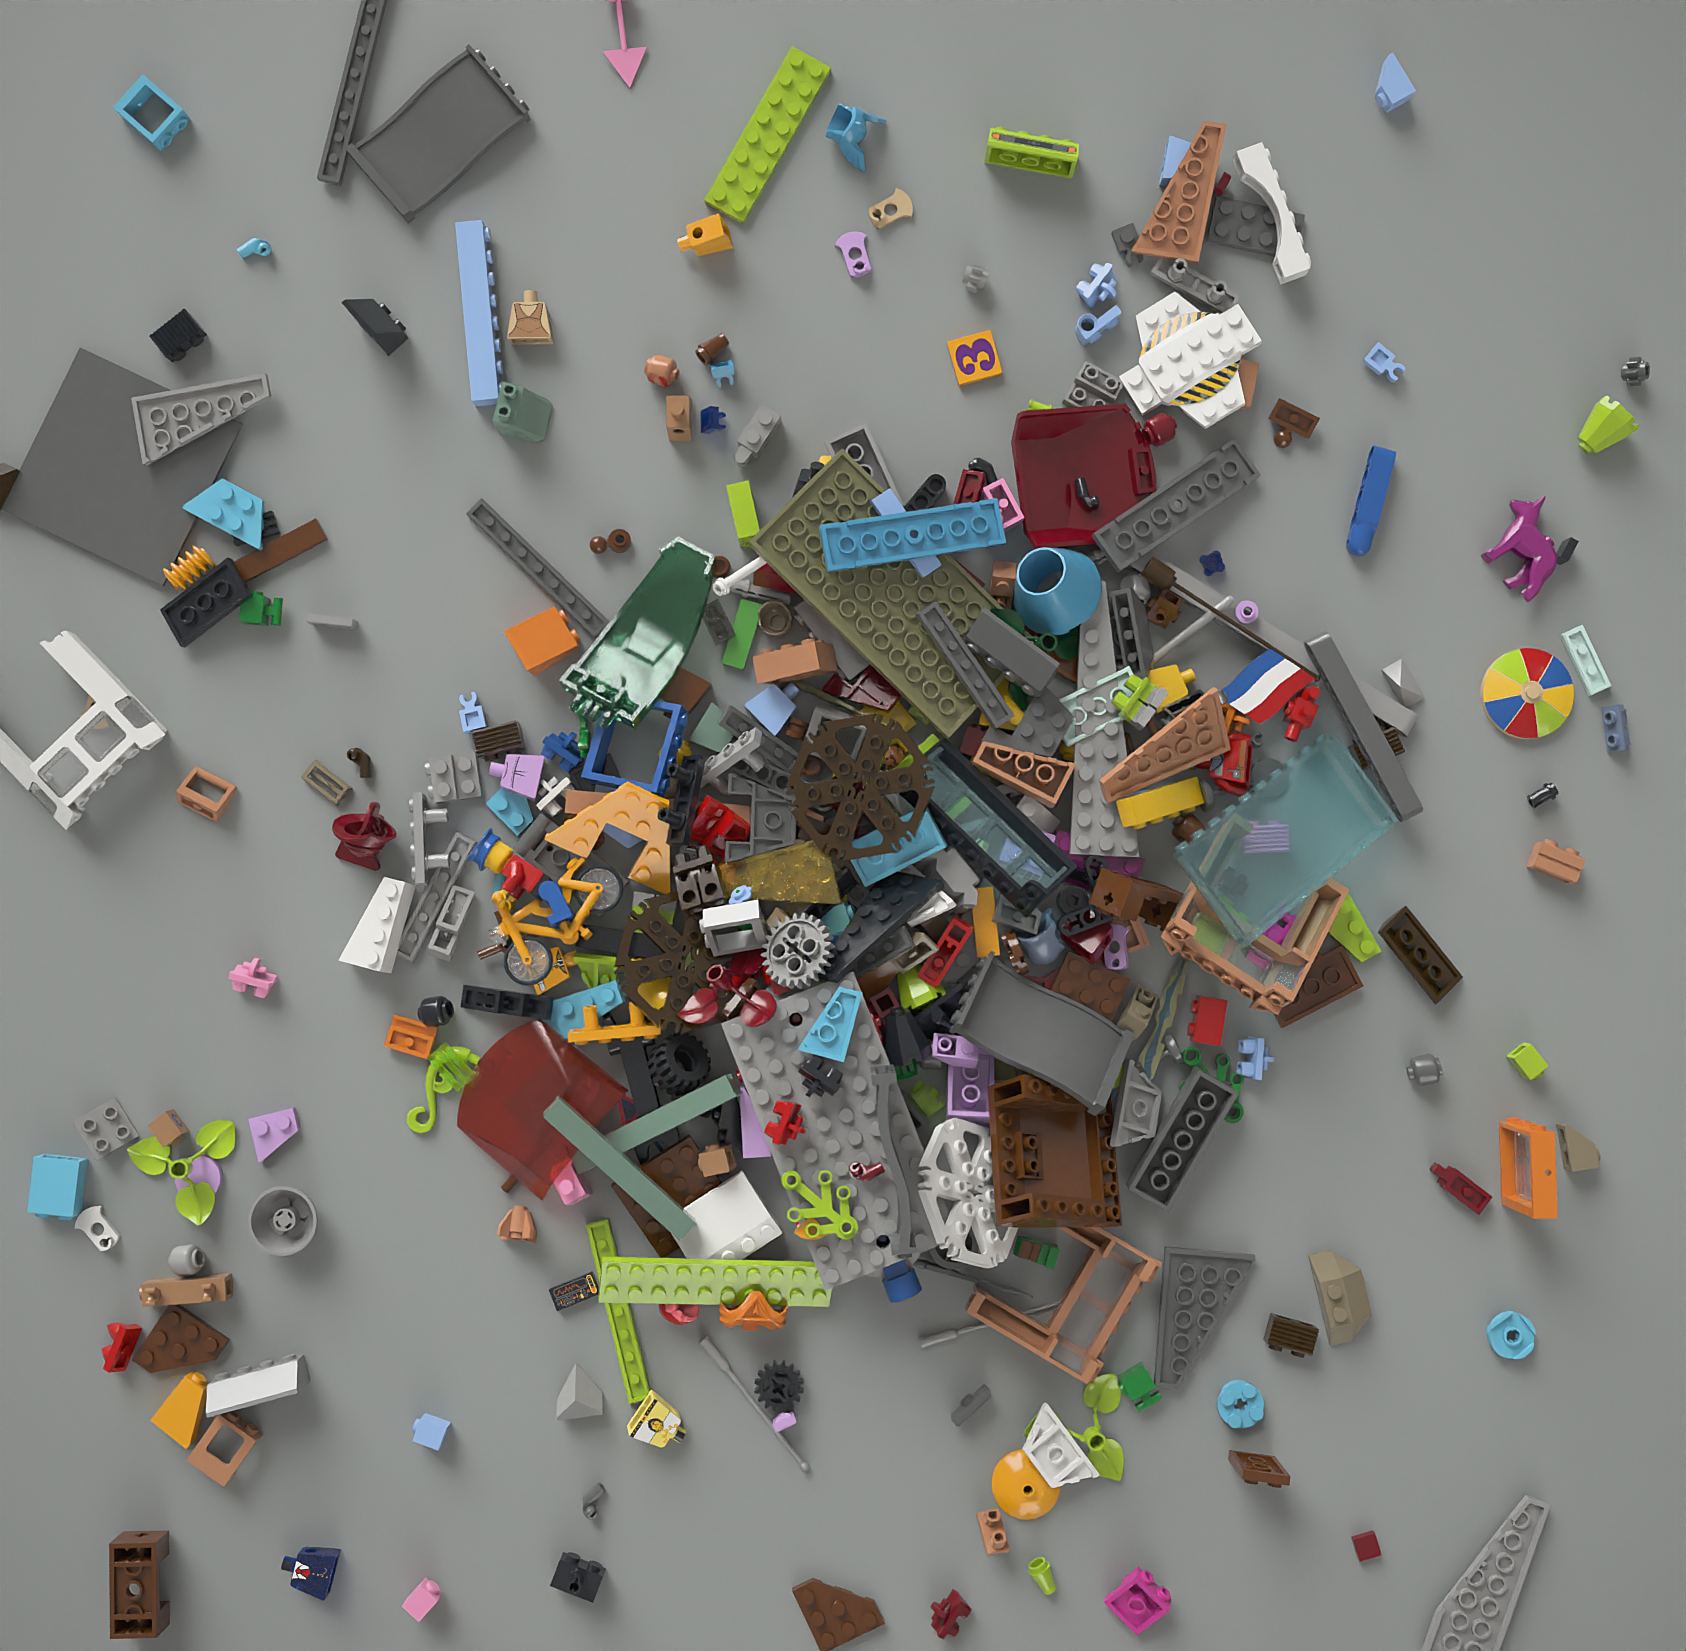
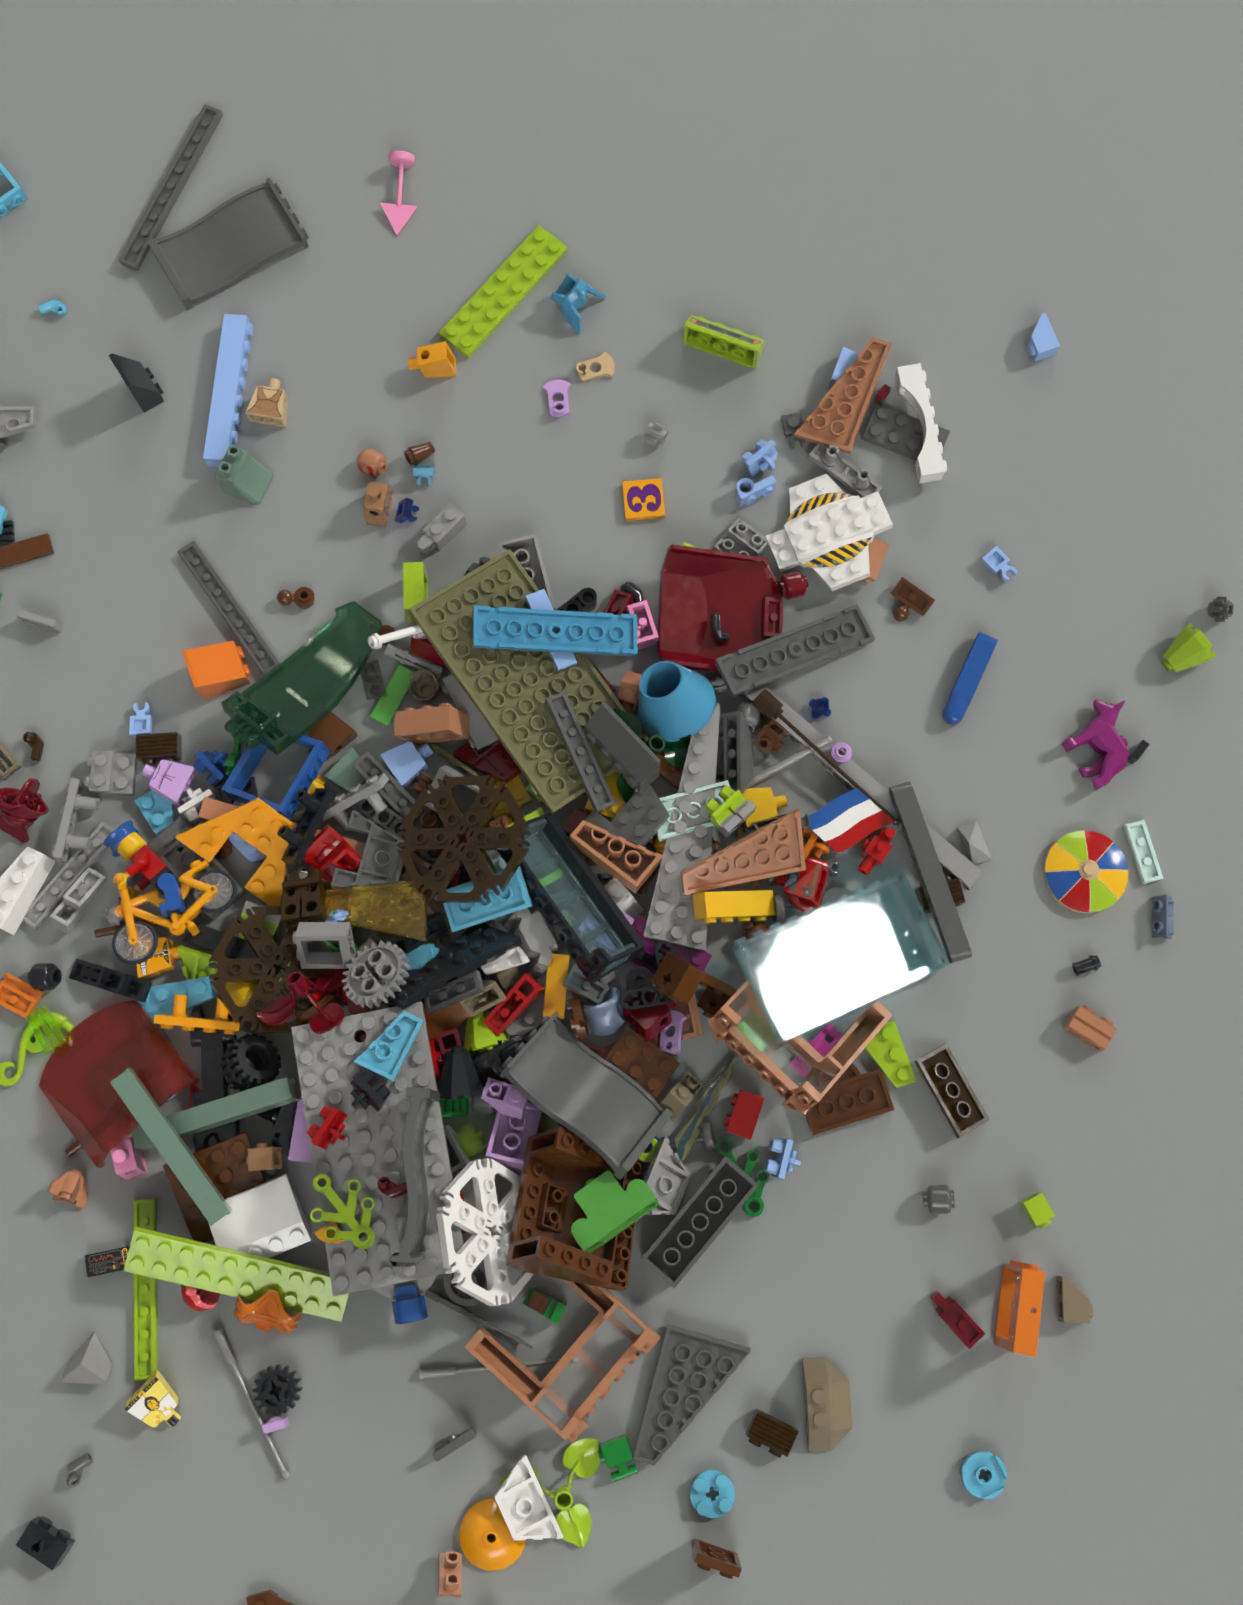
camera: 10 degrees right, 10 degrees down
(1089, 1147) = (609, 1209): none -> bright green brick

